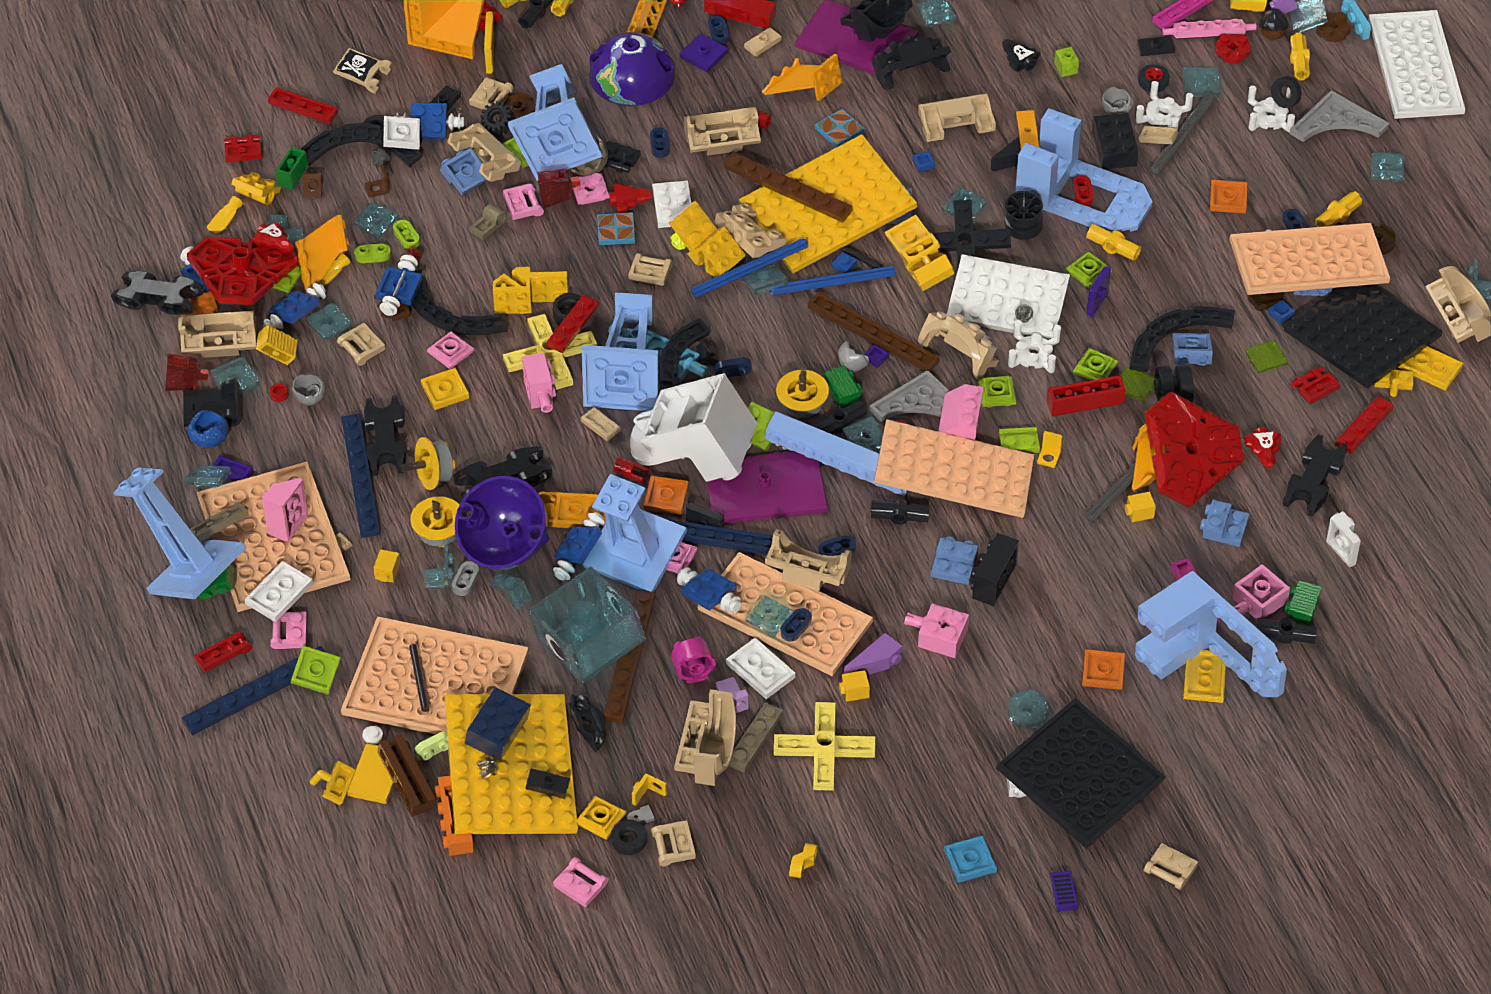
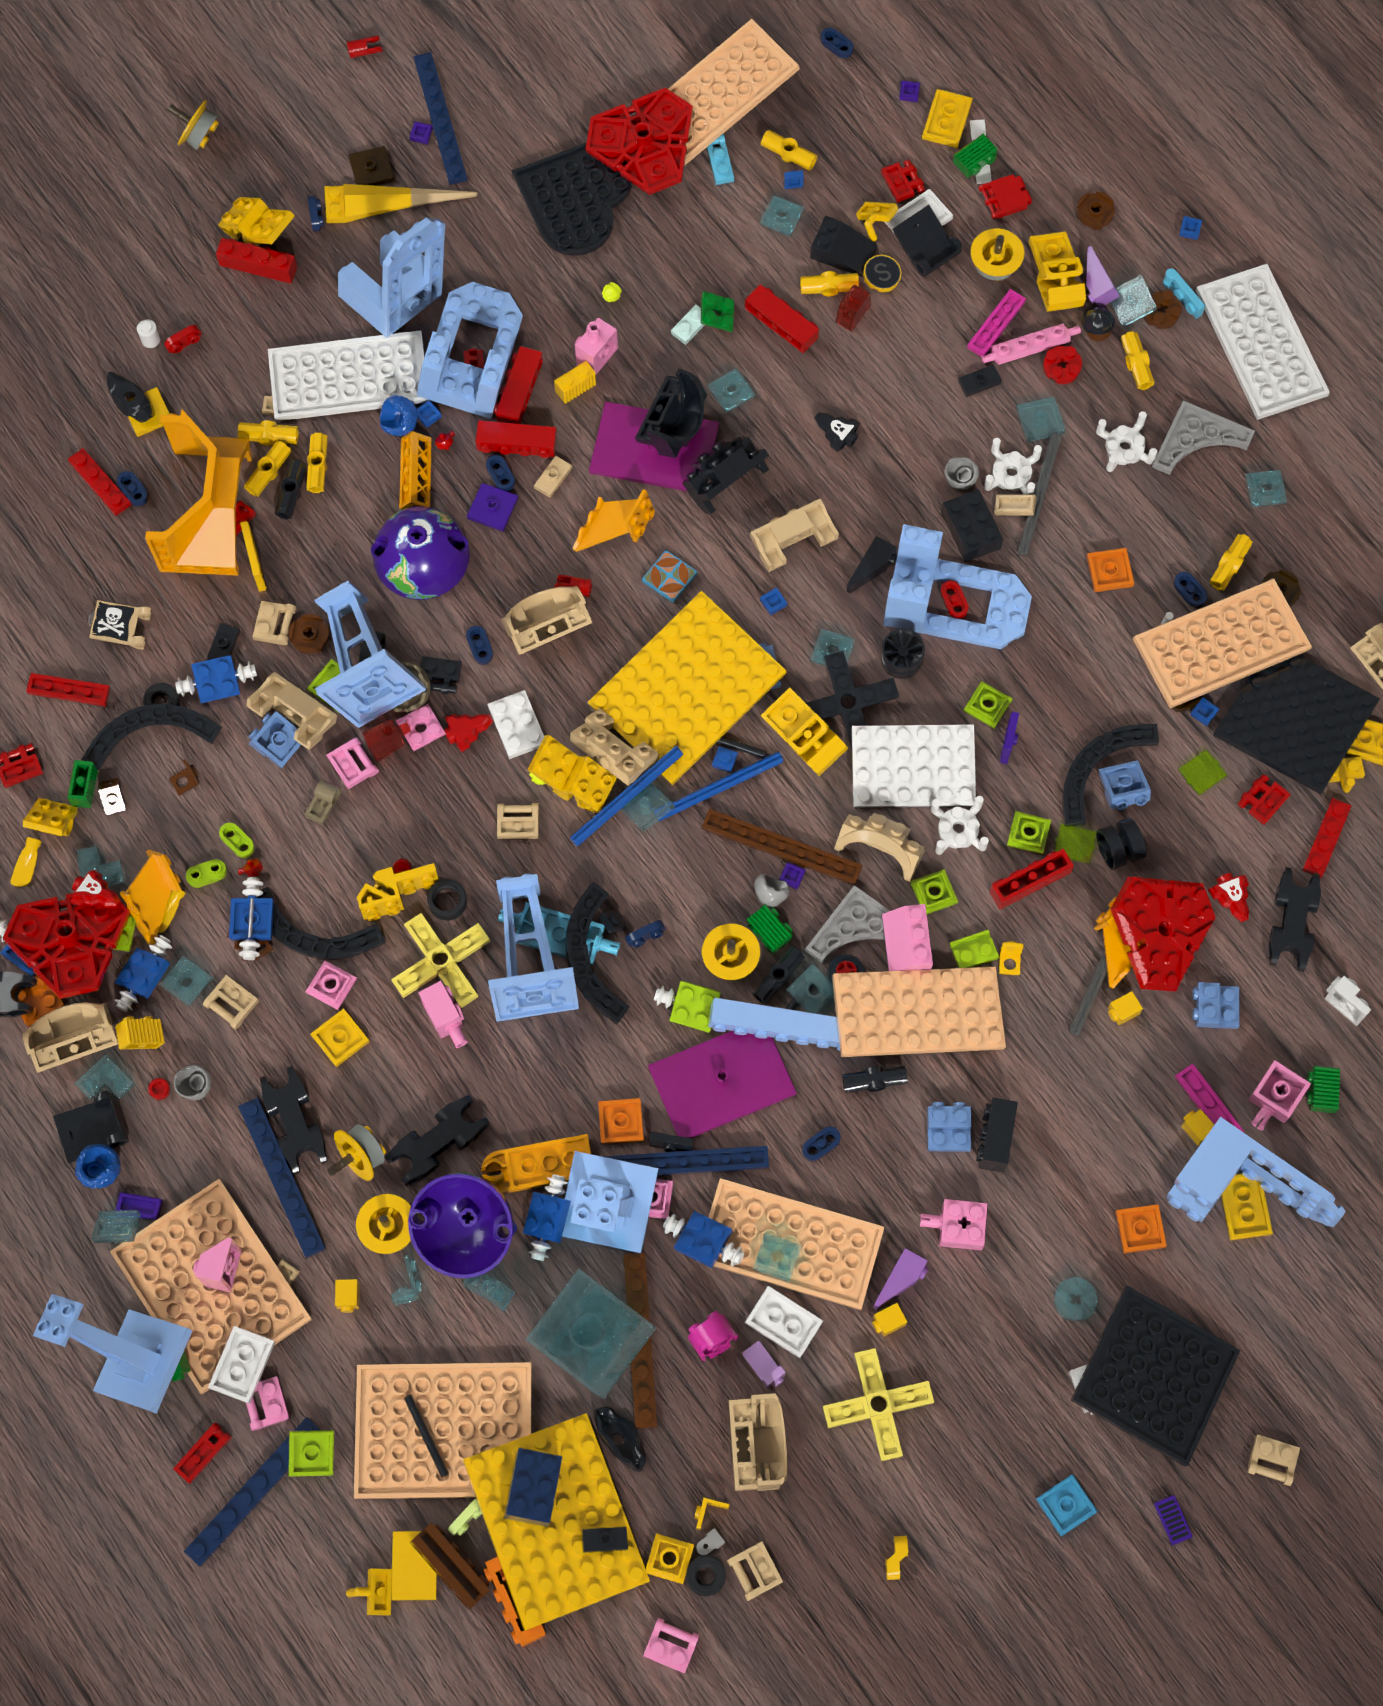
camera: 15 degrees left, 20 degrees up
(183, 373) = (40, 1096): clear red torso -> none
(219, 522) = (140, 1299): dark tan plate -> none
(372, 735) = (396, 1517): white plate -> none
(375, 226) = (200, 837): clear light blue piece -> none
(380, 157) = (176, 741): dark grey plate -> none
(401, 132) = (192, 707): white tile -> none
(465, 580) = (436, 1288): light grey plate -> none
(491, 112) = (304, 658): black tyre -> none
(491, 767) = (541, 1542): clear smoke plate -> none
(572, 323) = (457, 924): red plate -> none
(600, 424) = (523, 1044): tan plate -> none
(615, 229) = (464, 774): tile -> none
(628, 469) = (569, 1095): red hinge -> none
(713, 445) = (600, 1044): white piece -> none
(755, 737) = (802, 1409): dark tan plate -> none
(788, 187) = (640, 679): reddish brown plate -> none
(794, 626) = (808, 1263): dark blue plate -> none
(806, 567) = (801, 1182): tan piece -> none
(1024, 313) = (938, 787): clear smoke plate -> none
(1027, 128) = (876, 533): light orange tile -> none
(1066, 61) = (891, 428): lime brick -> none
(1113, 242) = (1005, 662): yellow piece -> none
(1153, 73) = (993, 421): black wheel -> none
(1277, 95) = (1145, 412): black tyre -> none
(1287, 630) = (1328, 1130): black piece -> none

